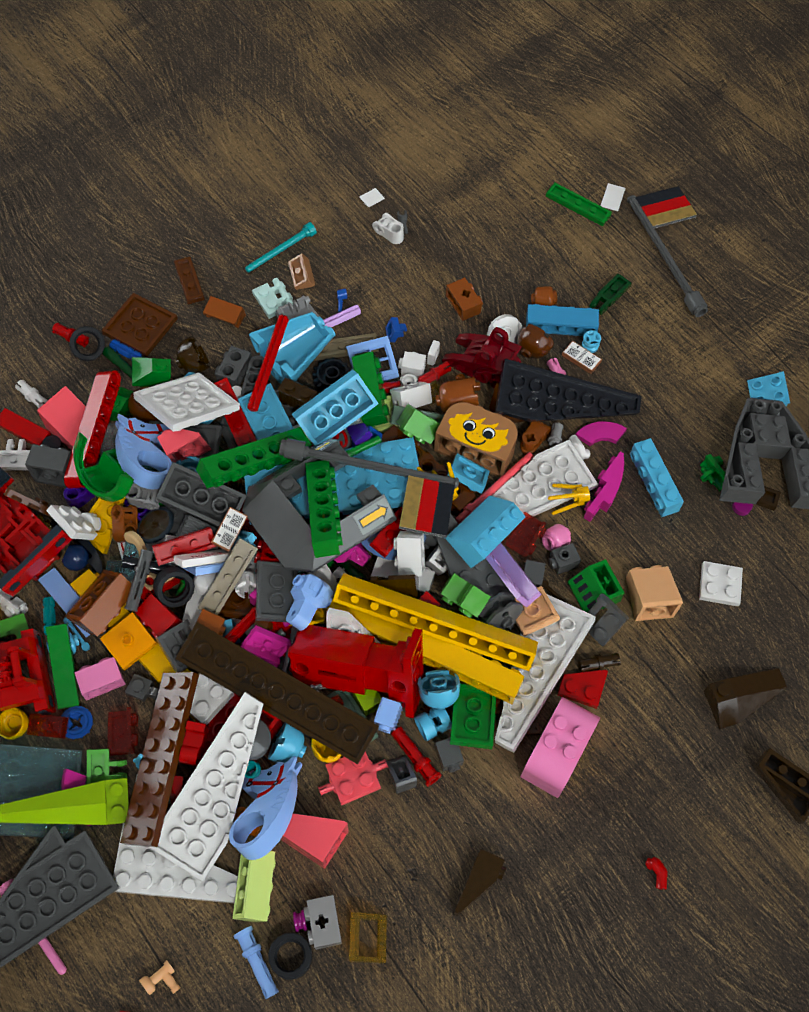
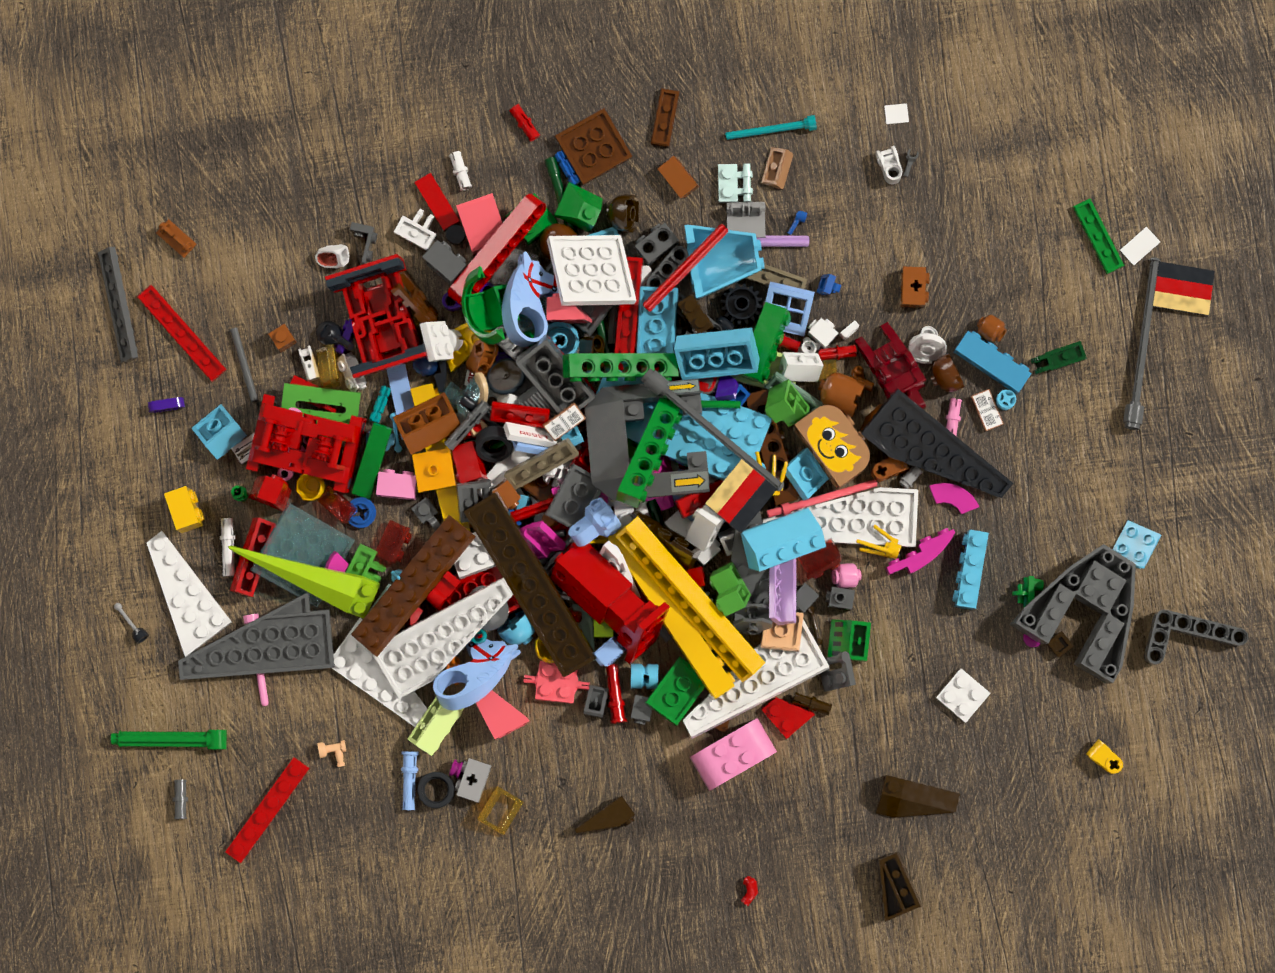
camera: 30 degrees right, 20 degrees up
(90, 330) = (534, 132): black tyre -> none
(439, 689) = (661, 655): medium azure cylinder -> none
(584, 453) = (923, 508): white arm -> none
(653, 593) = (895, 670): light nougat slope -> none

